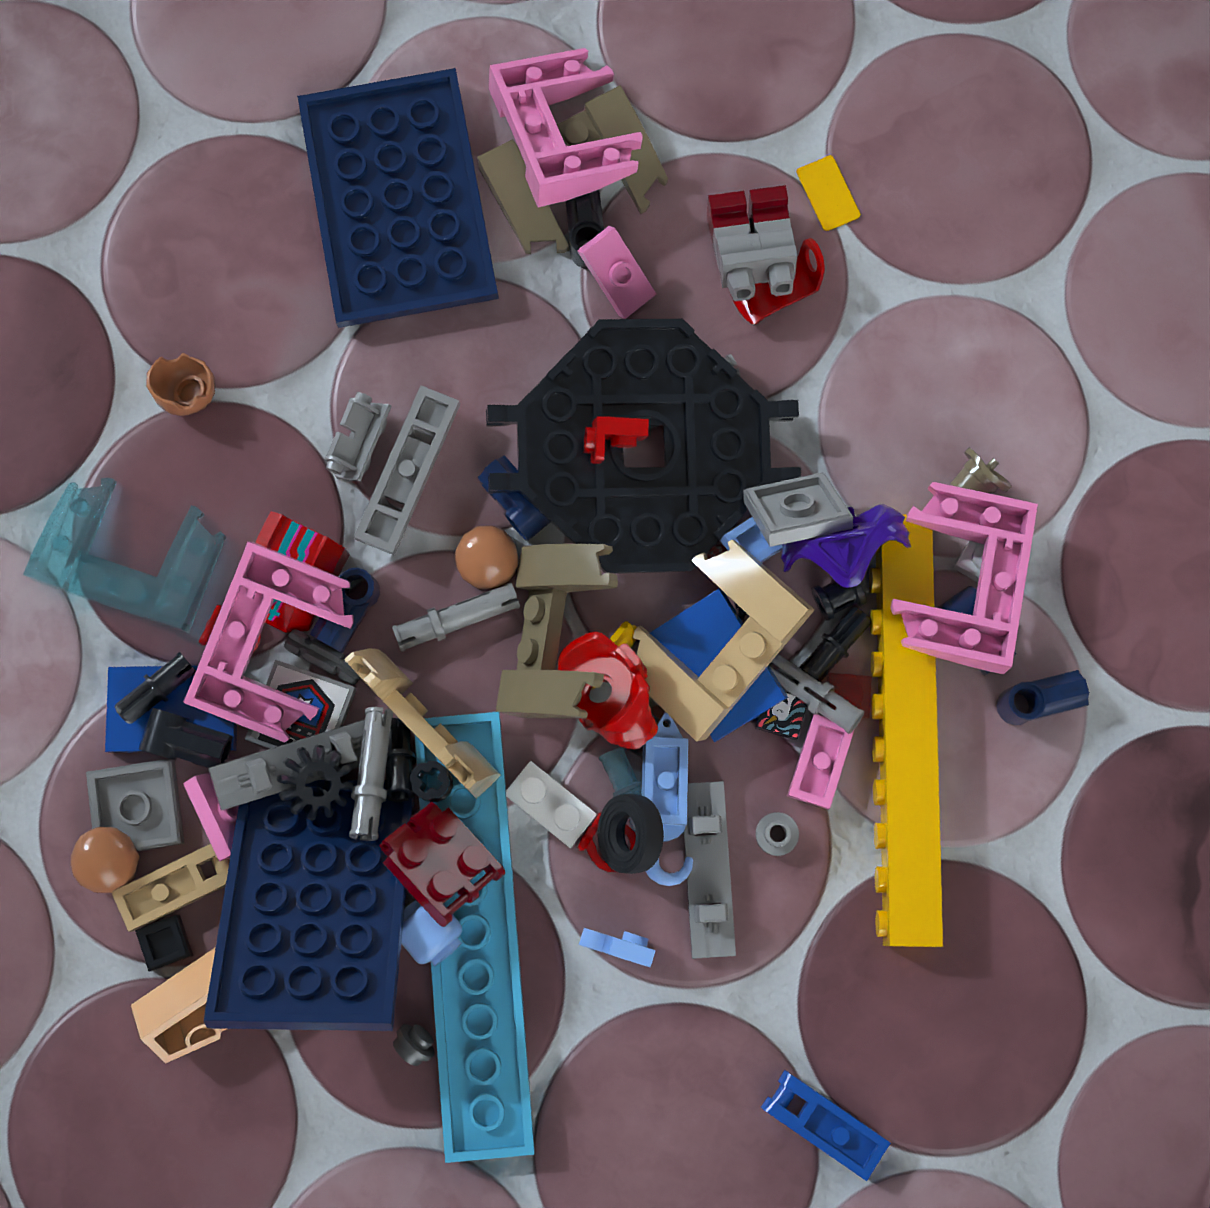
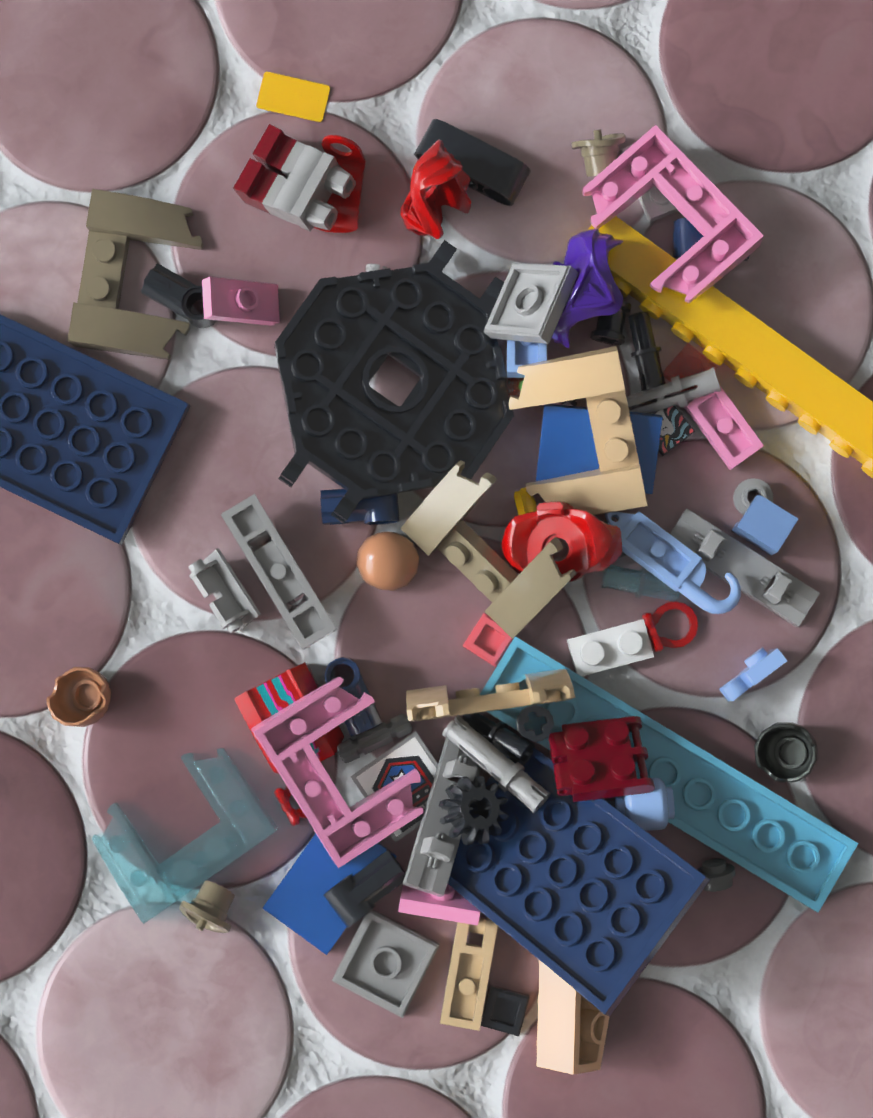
camera: 50 degrees left, 5 degrees up
(77, 621) = (209, 908): none -> dark tan piece
(104, 859) = (411, 1012): nougat hair -> none
(154, 689) = (308, 883): black axle -> none
(455, 617) = (420, 606): light grey pin -> none
(479, 692) = (488, 640): none -> coral tile
(553, 170) = (126, 290): bright pink wedge -> none
(569, 1027) = (786, 752): none -> pearl dark grey hair
(621, 431) = (376, 389): red bracket -> none
(648, 833) = (685, 586): black tyre -> none
(760, 860) = (765, 525): none -> medium blue panel
(834, 352) = (434, 182): none -> red piece
(886, 378) = (489, 169): none -> black beam
(1044, 697) = (795, 229): dark blue piece -> none

